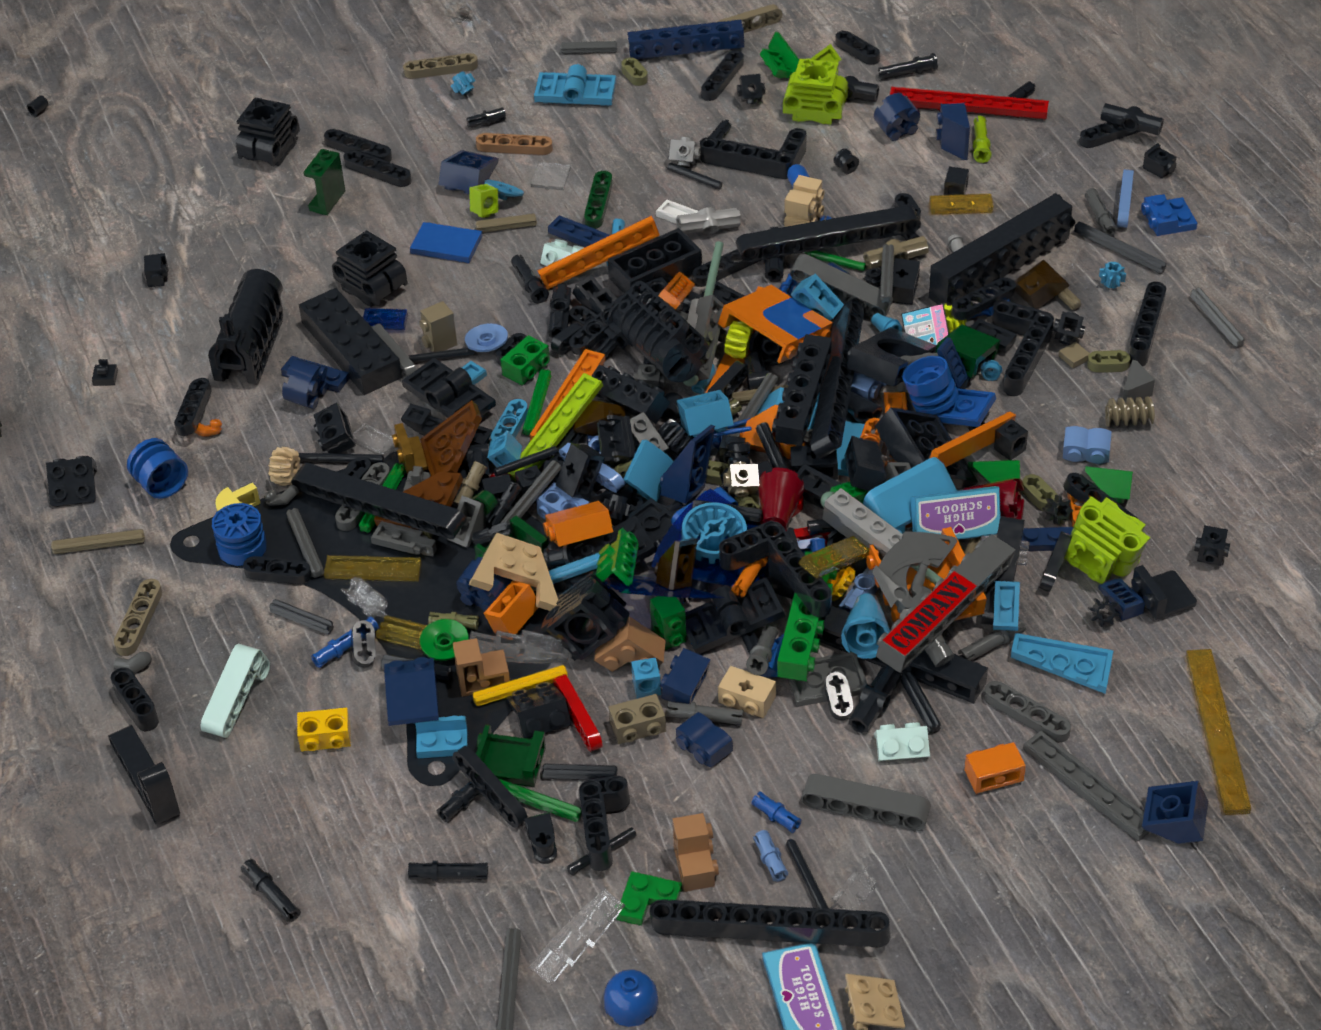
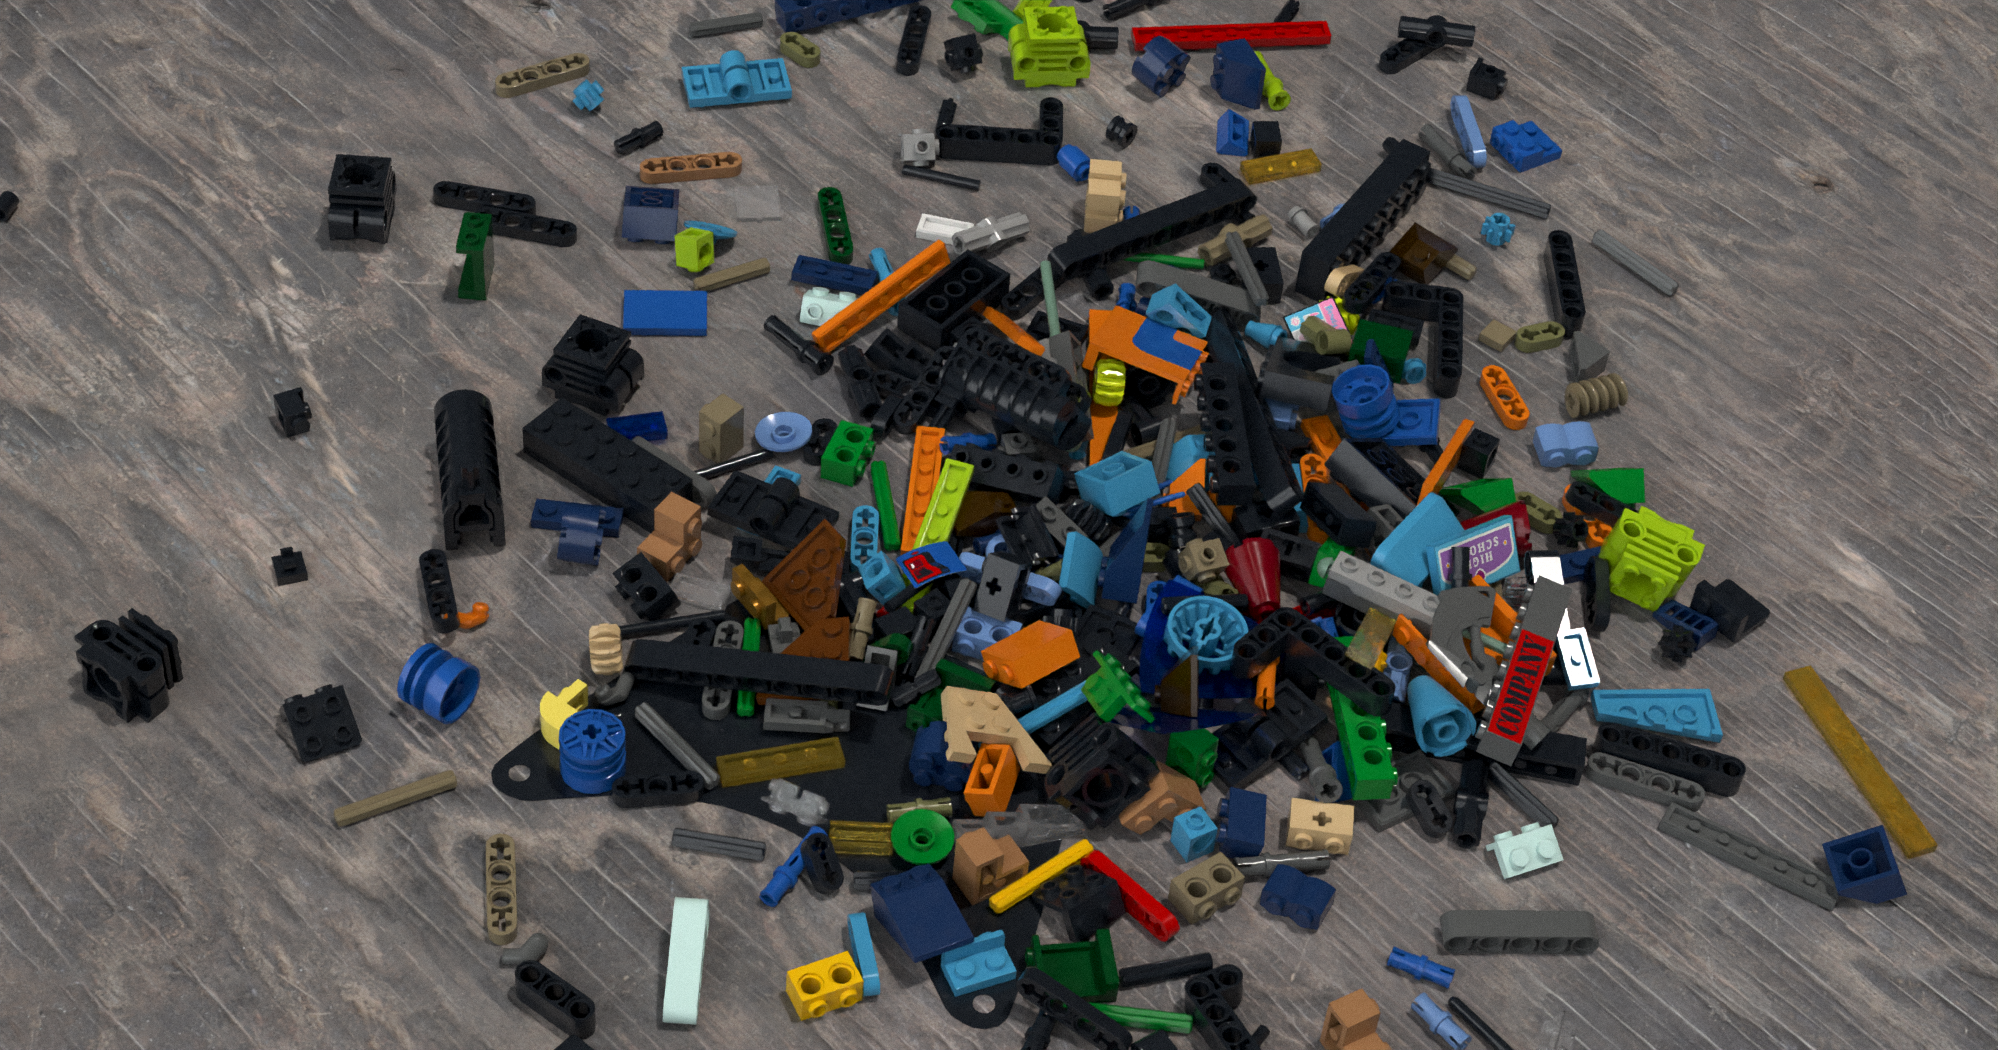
camera: 25 degrees left, 0 degrees up
(363, 713) = (863, 953): none -> dark azure beam
(370, 399) = (674, 535): none -> medium nougat brick
(540, 446) = (930, 563): none -> sticker
(629, 368) = (981, 440): none -> blue pin
(922, 332) = (1325, 337): none -> olive piece
(935, 176) = (1232, 134): none -> blue slope
(935, 517) = (1460, 567): none -> black pin
(956, 290) = (1341, 279): none -> tan beam
(994, 767) = (1646, 857): orange brick -> none
(1060, 395) = (1504, 408): none -> orange beam
(1068, 321) = (1482, 303): black brick -> none
(1077, 708) = (1710, 769): none -> black beam
(1212, 545) = (1760, 541): black brick -> none

